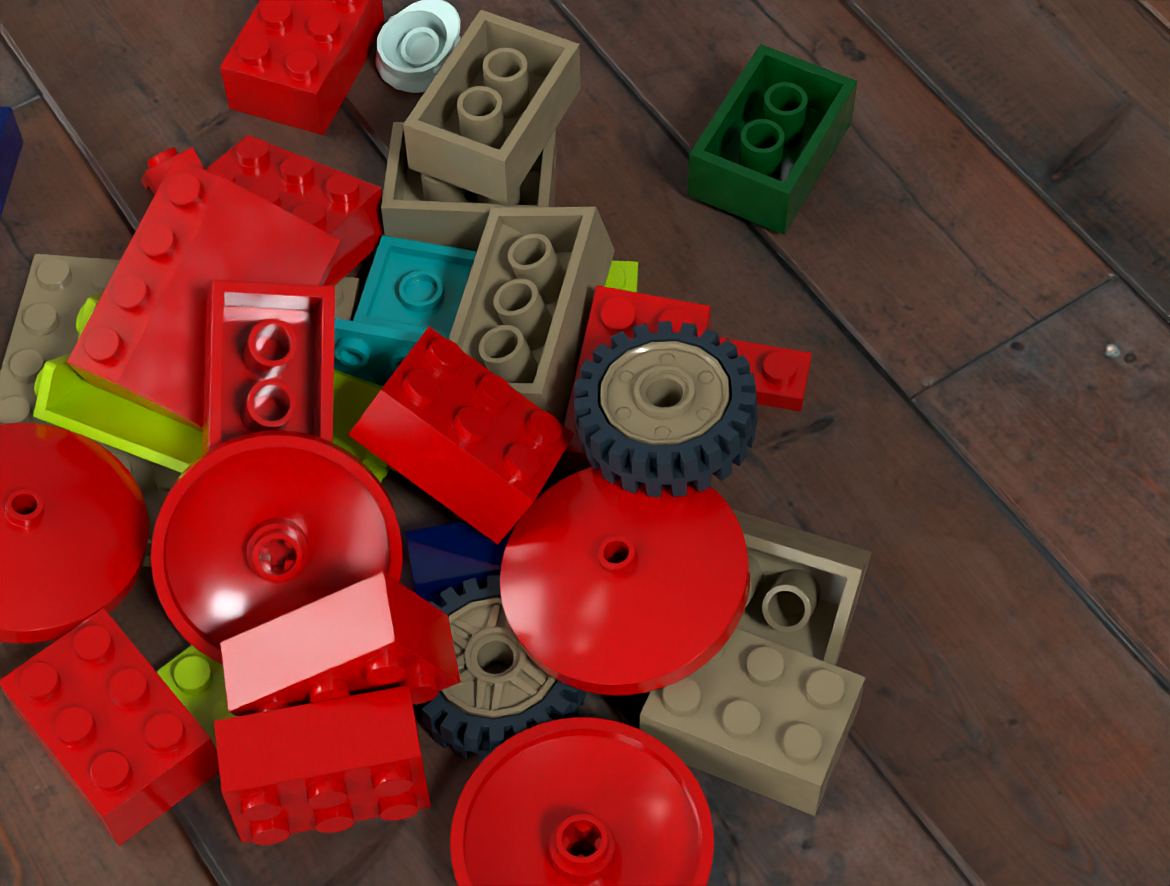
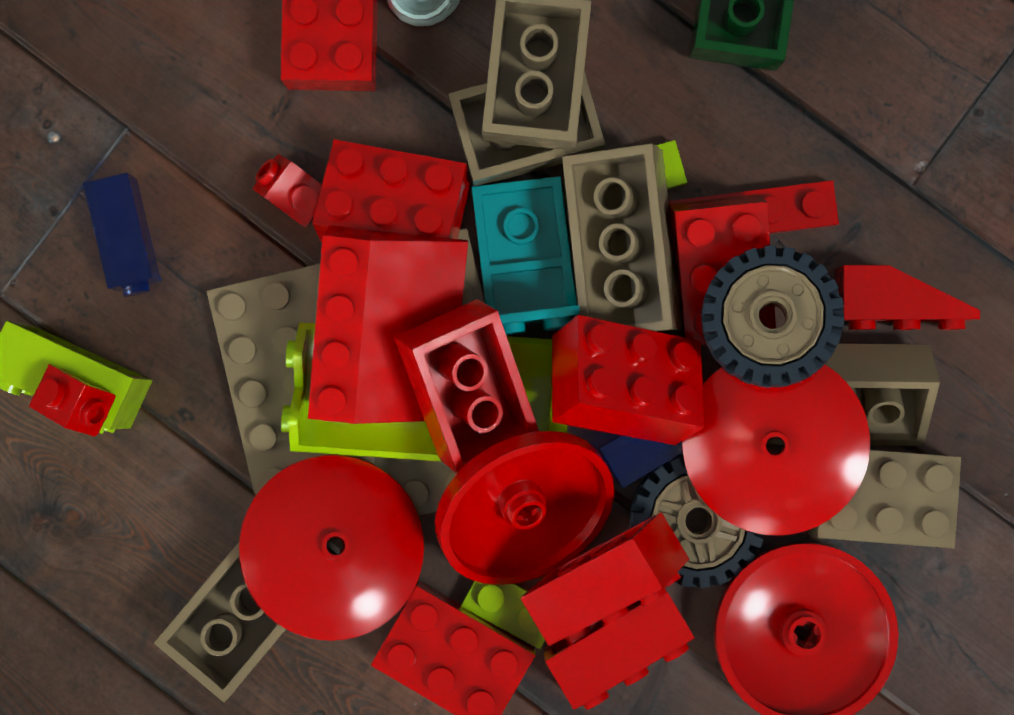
camera: 20 degrees left, 30 degrees up
(841, 491) = (893, 296): none -> red slope

